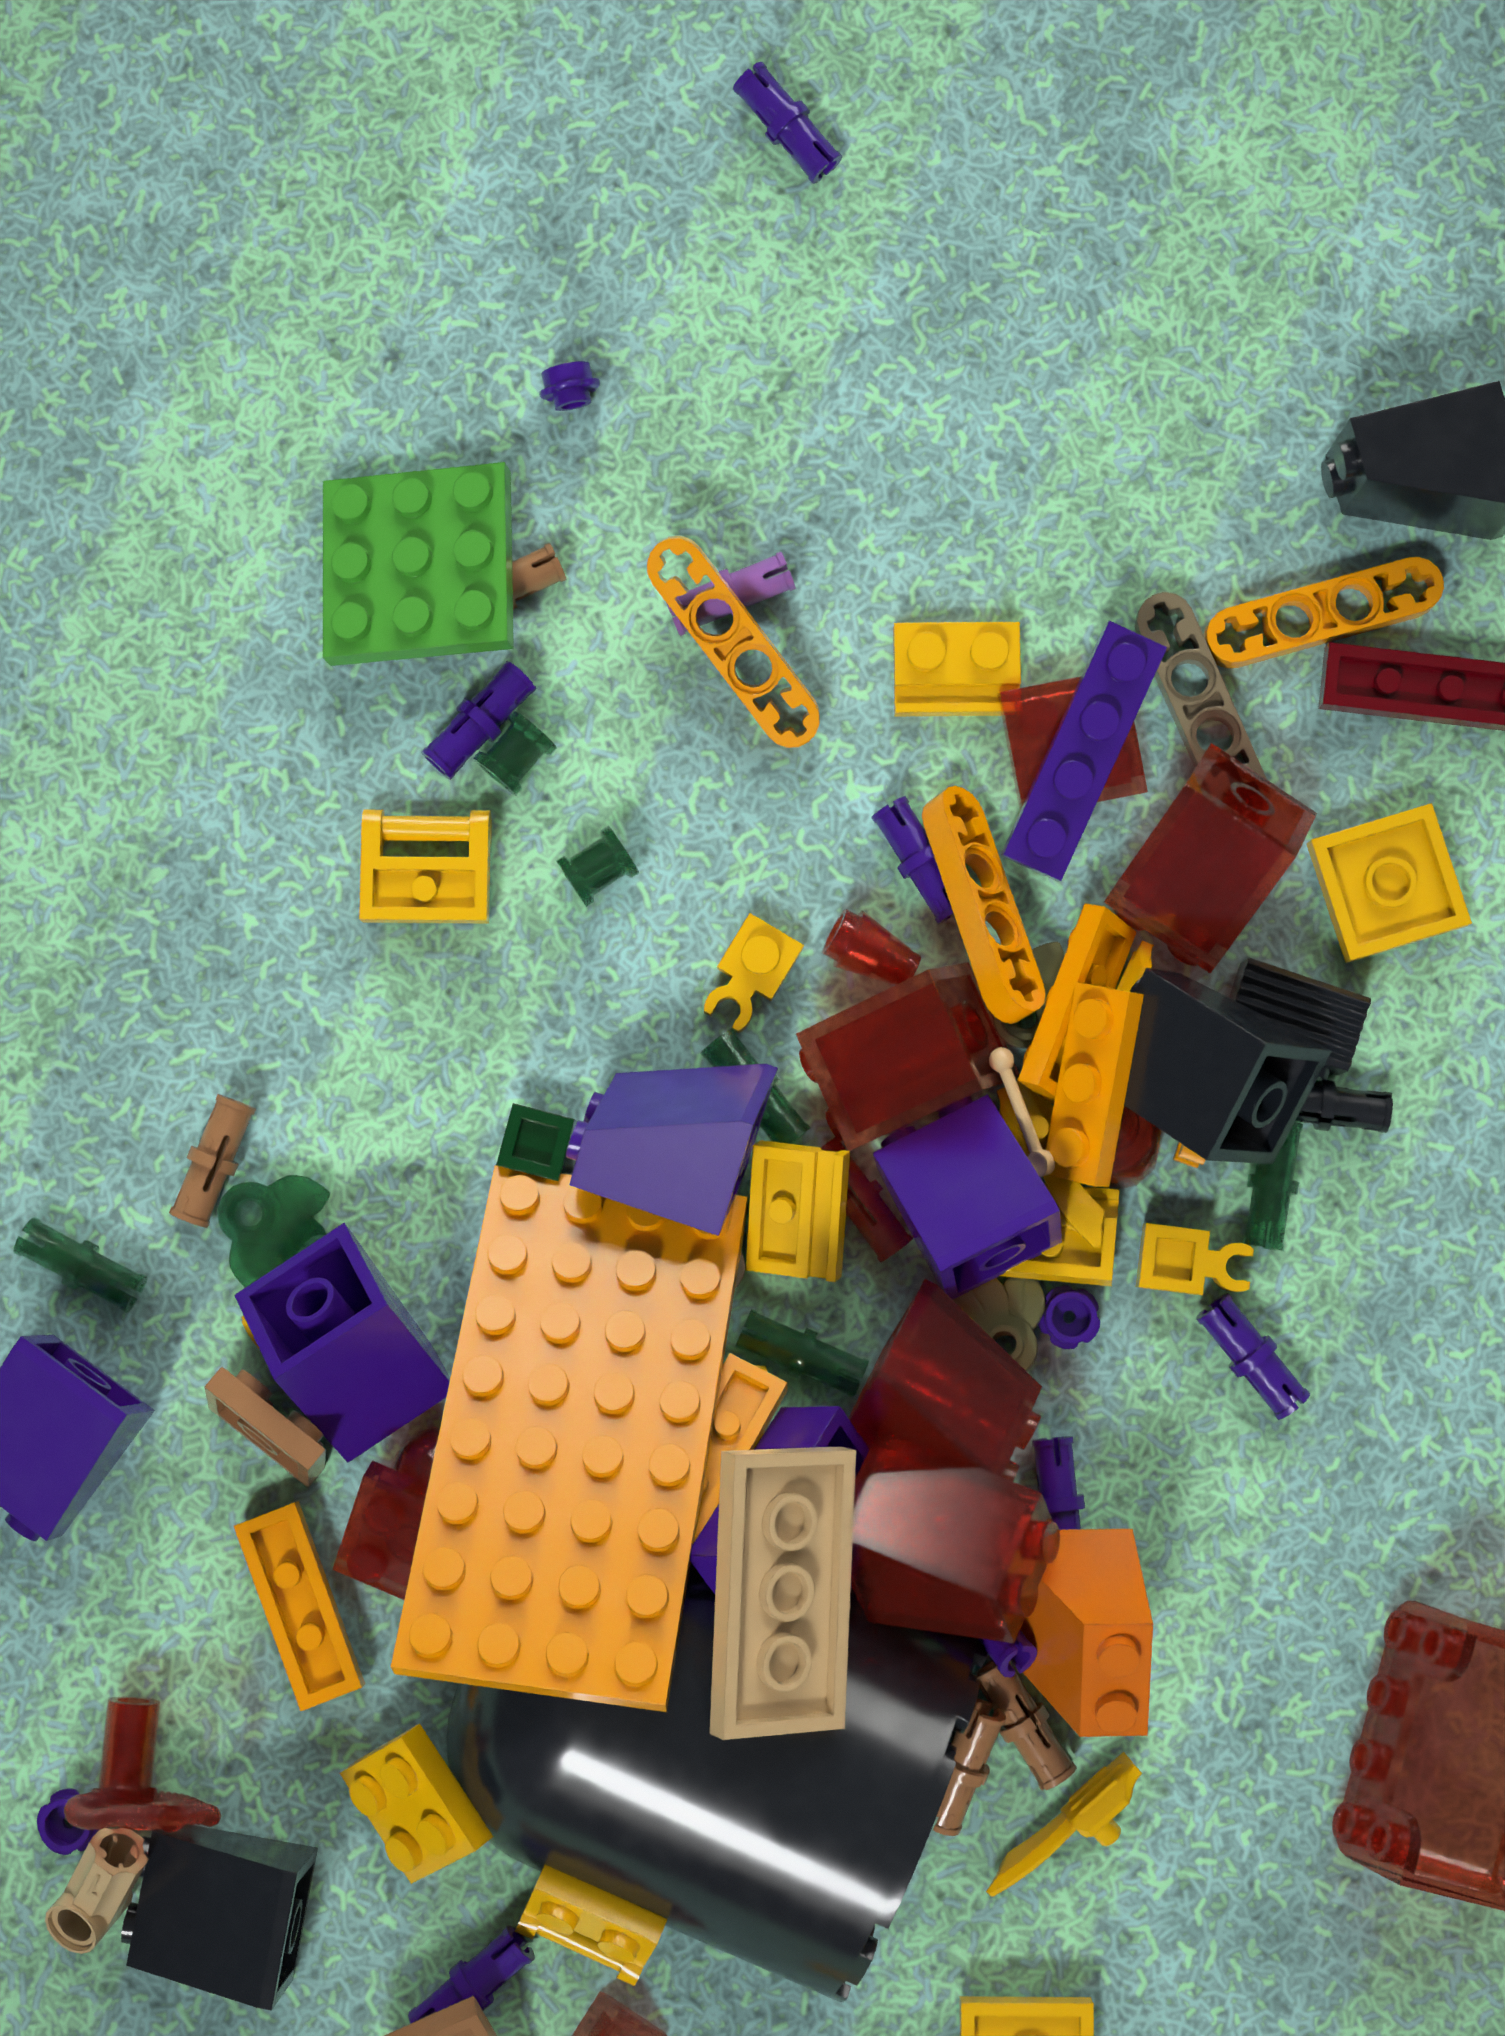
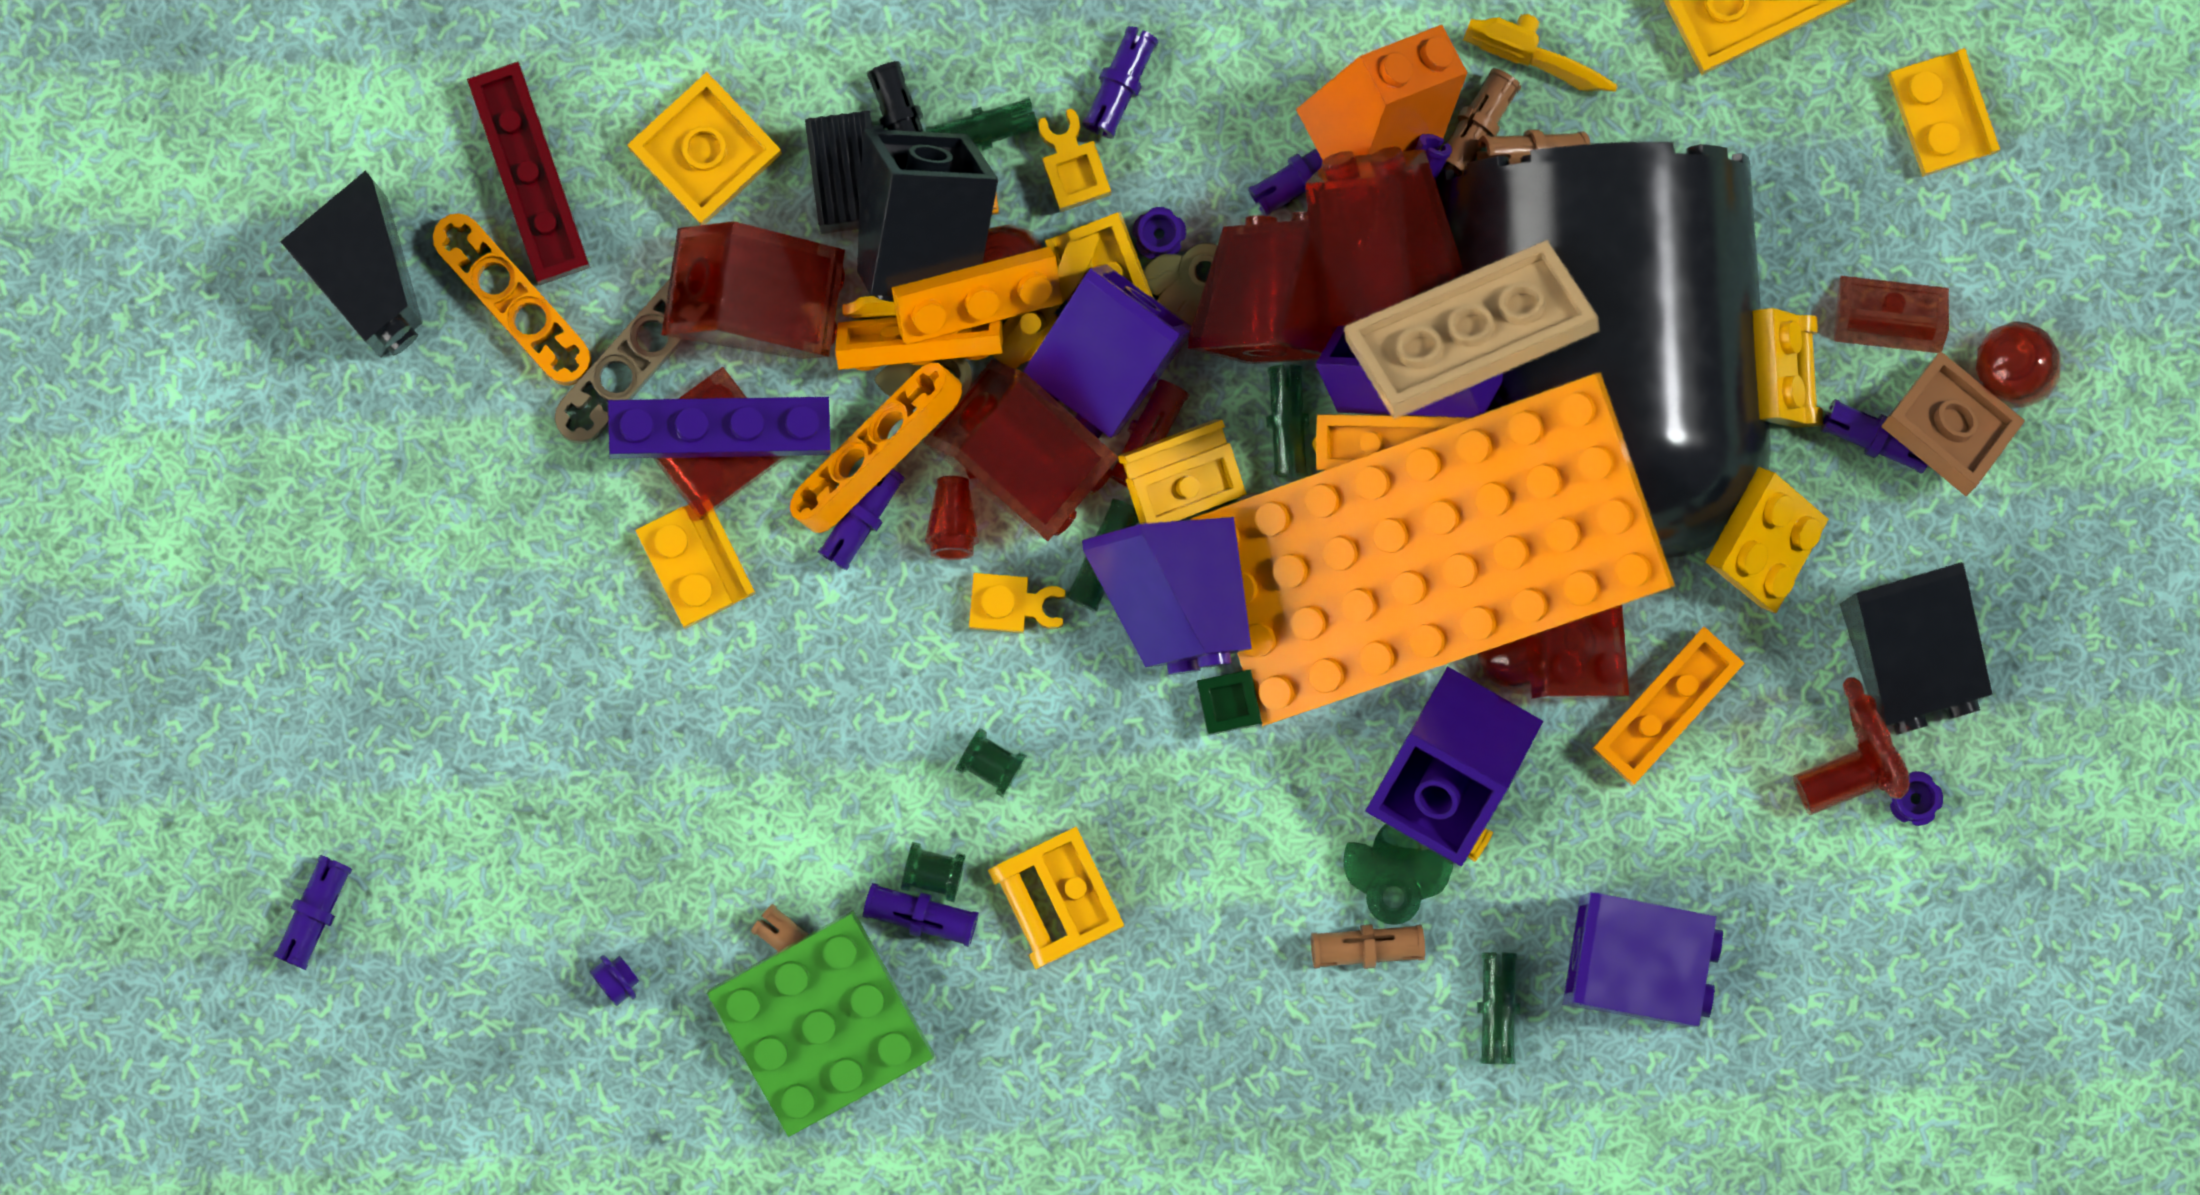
camera: 120 degrees left, 0 degrees up
(97, 1889) = (1949, 743): tan piece -> none
(246, 1407) = (1543, 811): medium nougat plate -> none
(726, 647) = (768, 744): light orange beam -> none
(748, 585) = (722, 767): medium lavender pin -> none
(1002, 1061) = (993, 372): tan hinge -> none

